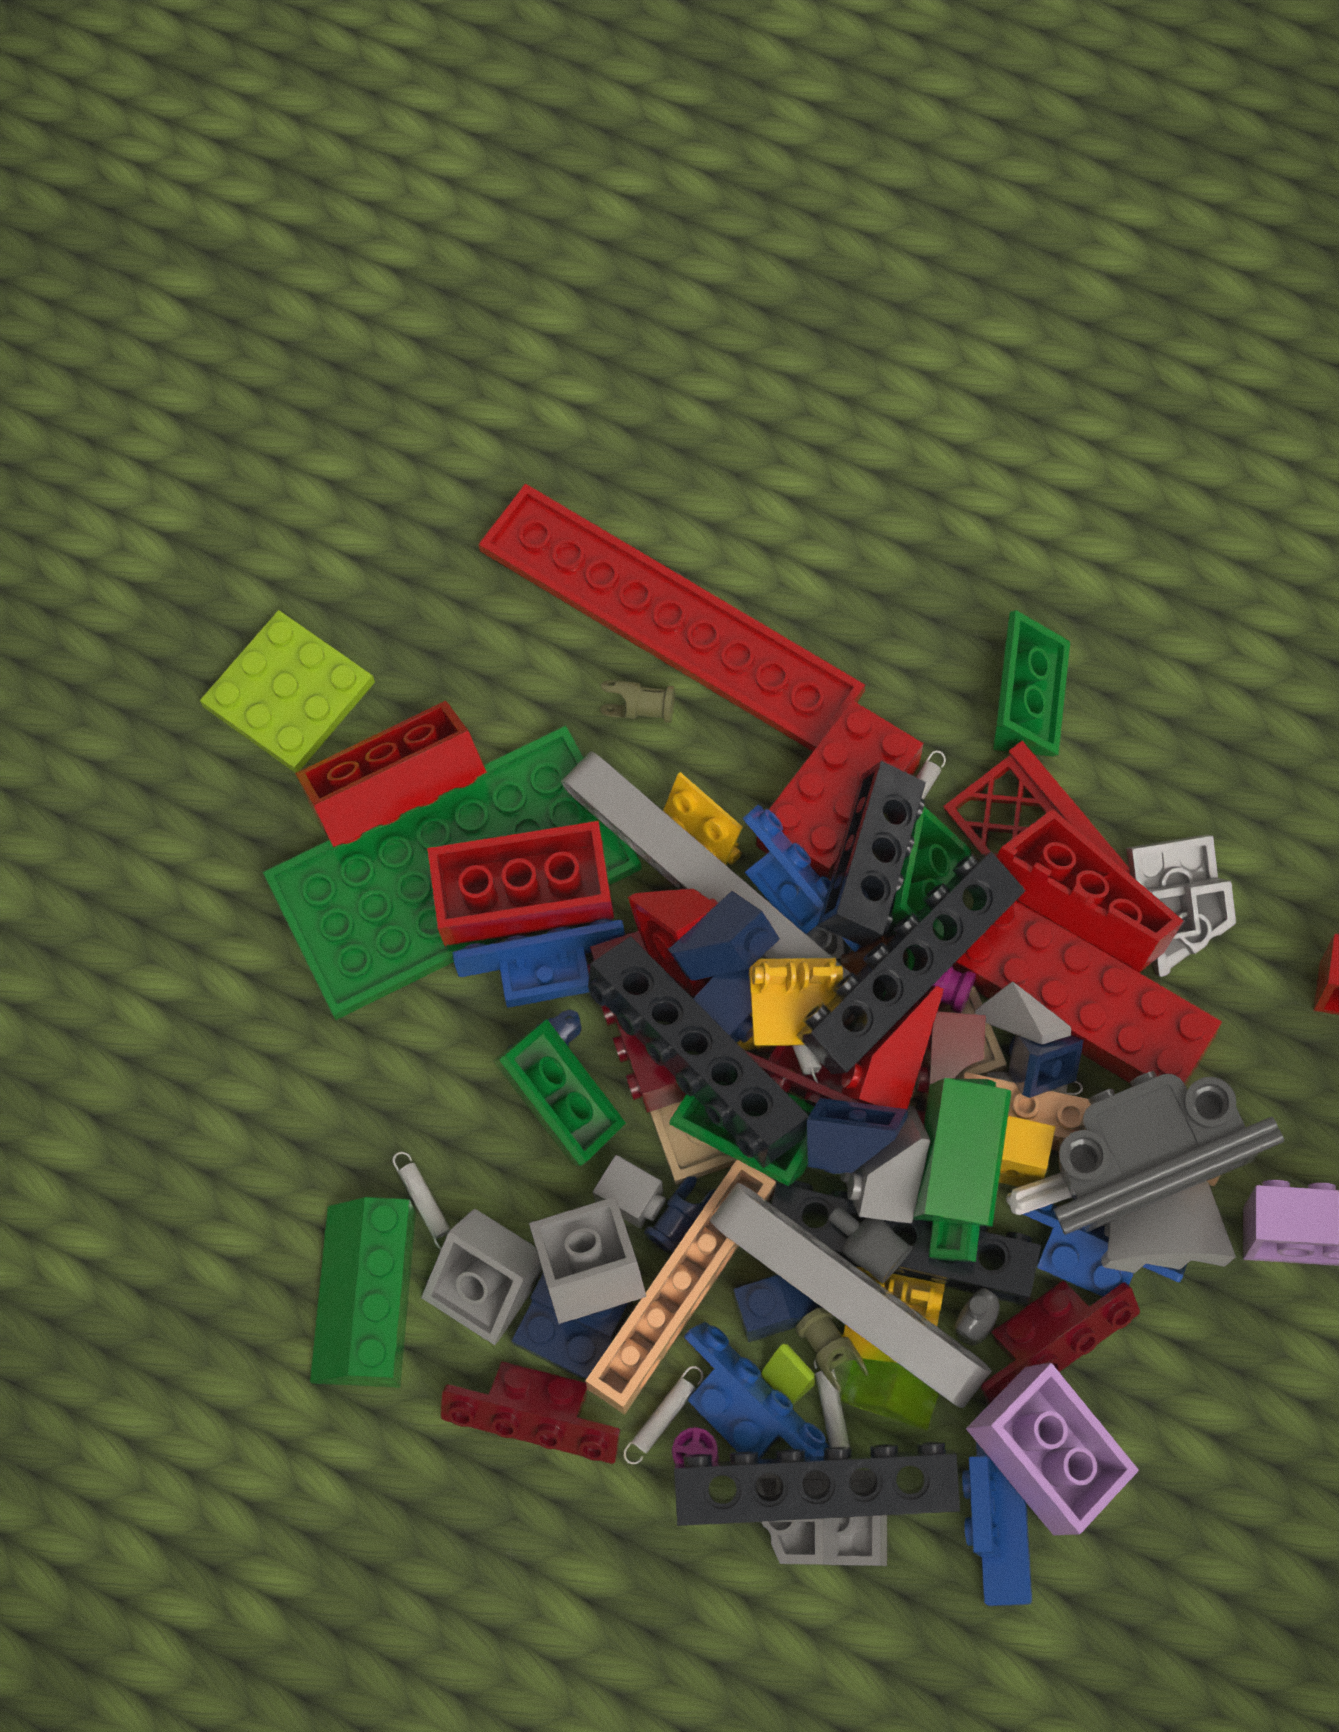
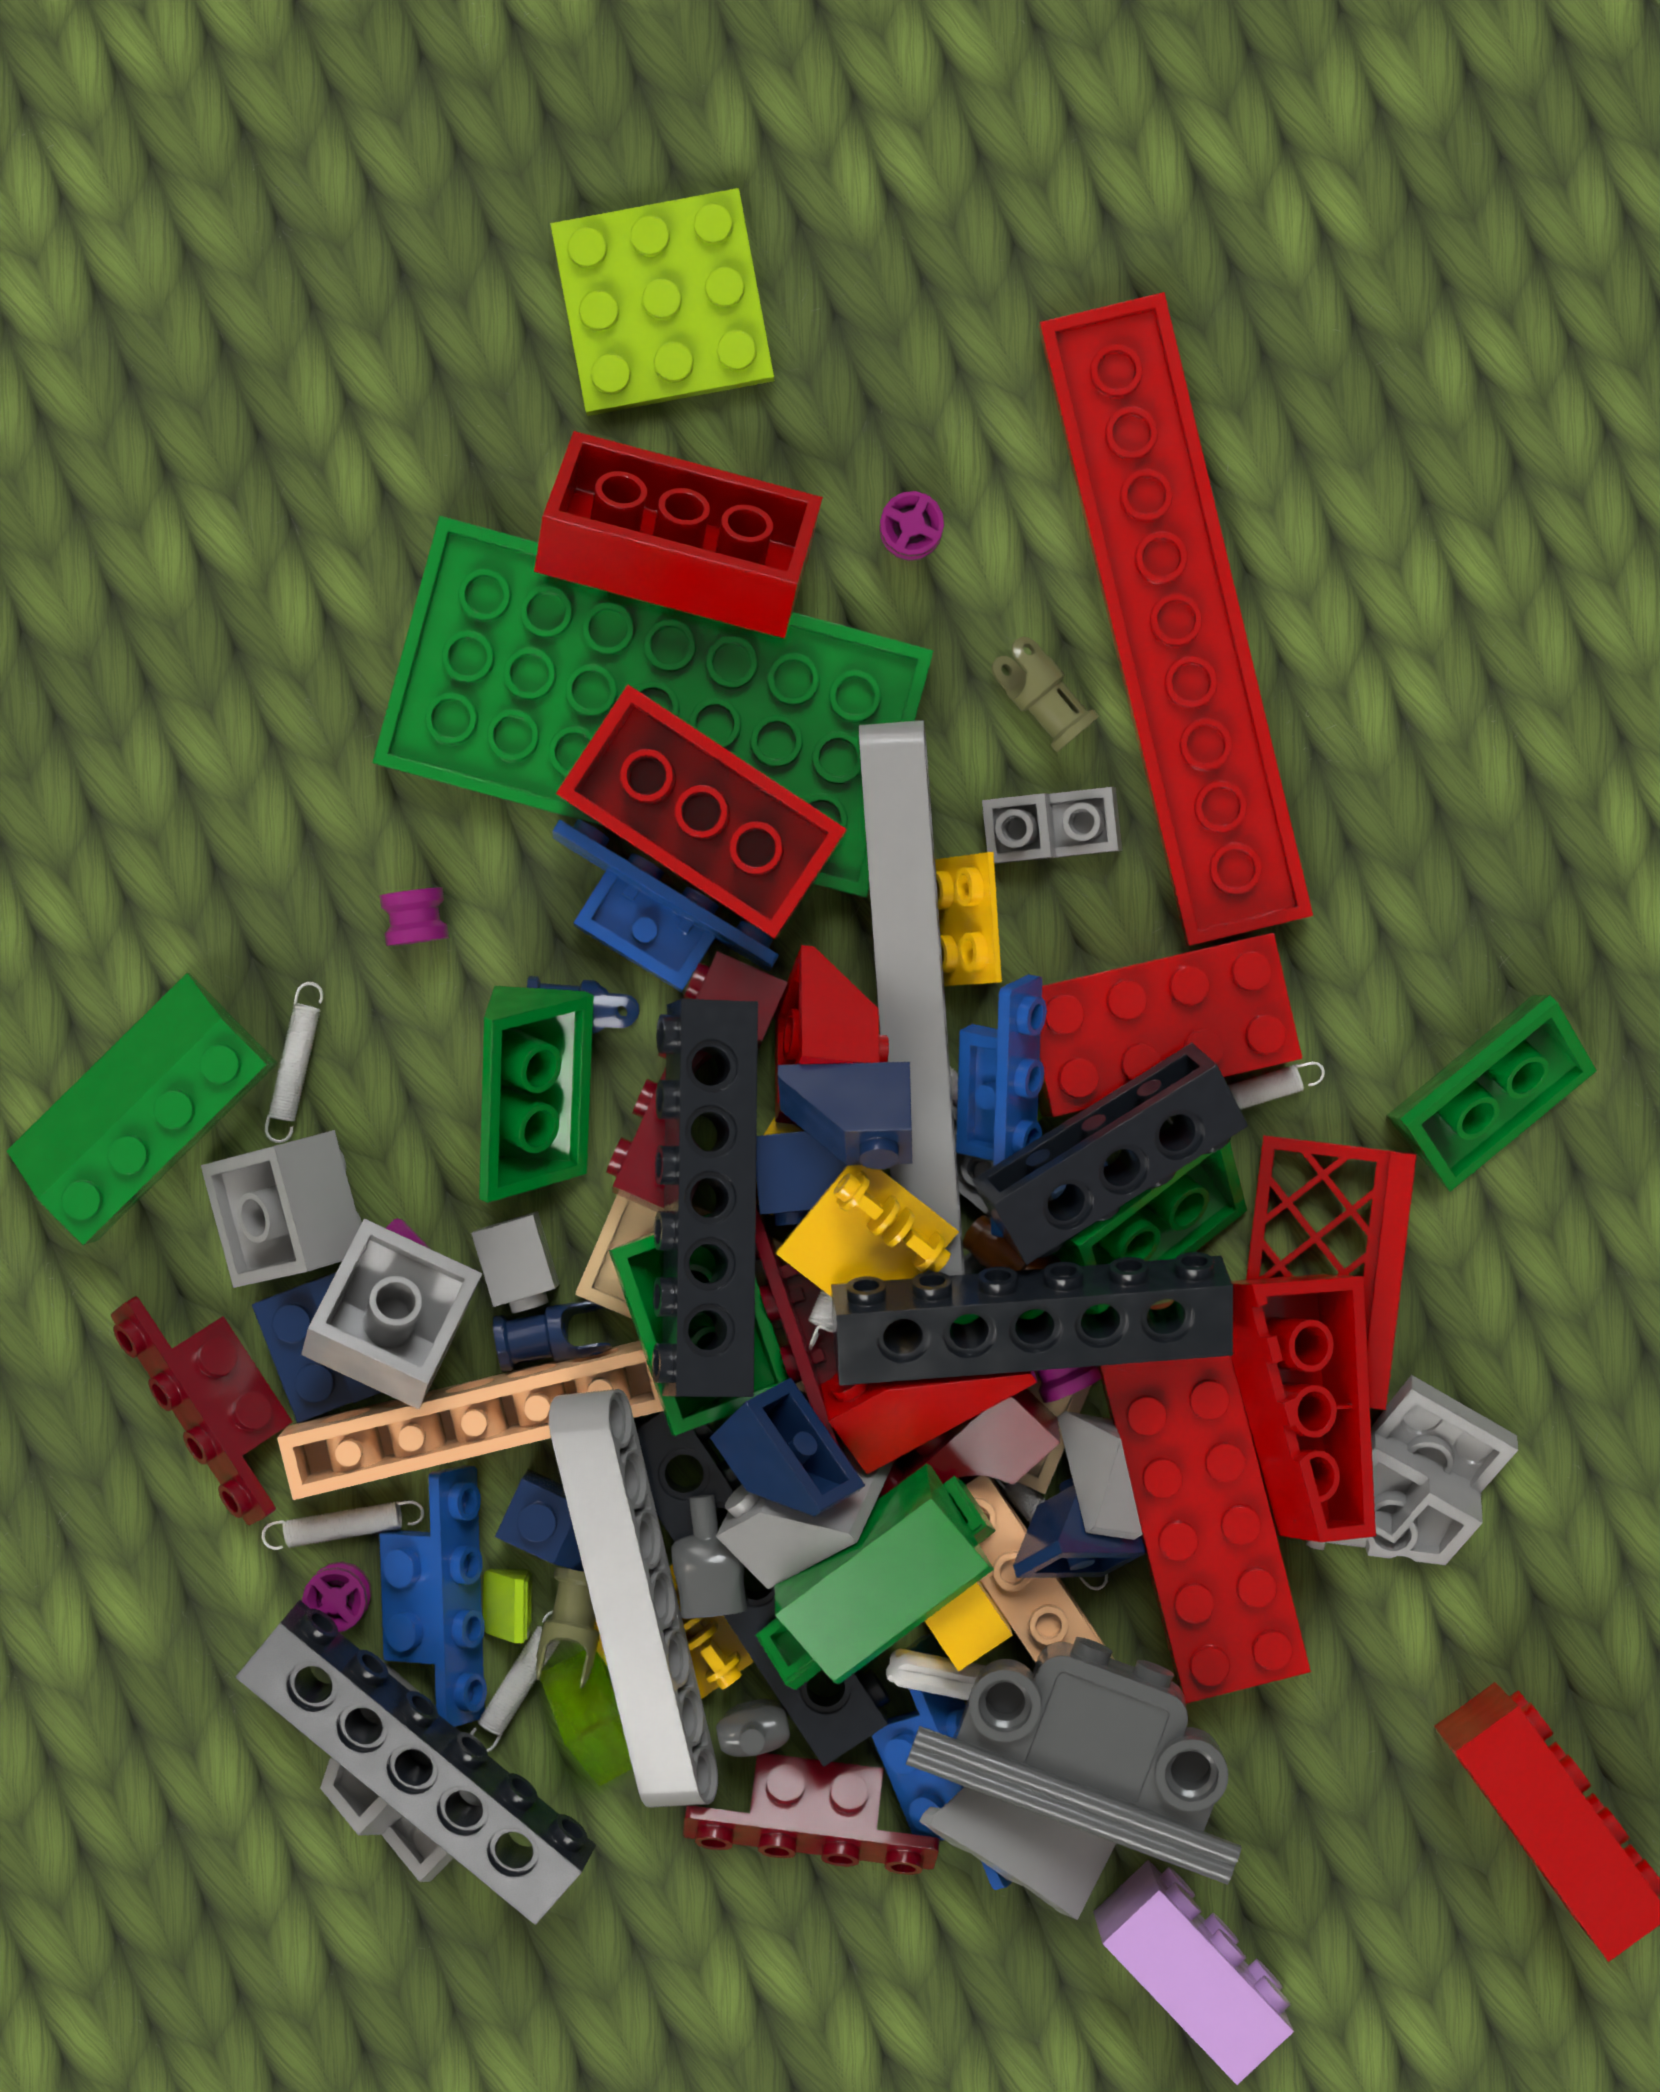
camera: 30 degrees right, 20 degrees up
(421, 1071) = (414, 916): none -> magenta wheel
(500, 673) = (916, 515): none -> magenta wheel
(703, 754) = (1052, 825): none -> light grey slope
(998, 1532) = (593, 1936): blue bracket -> none
(1052, 1449) = (692, 1943): lavender brick -> none

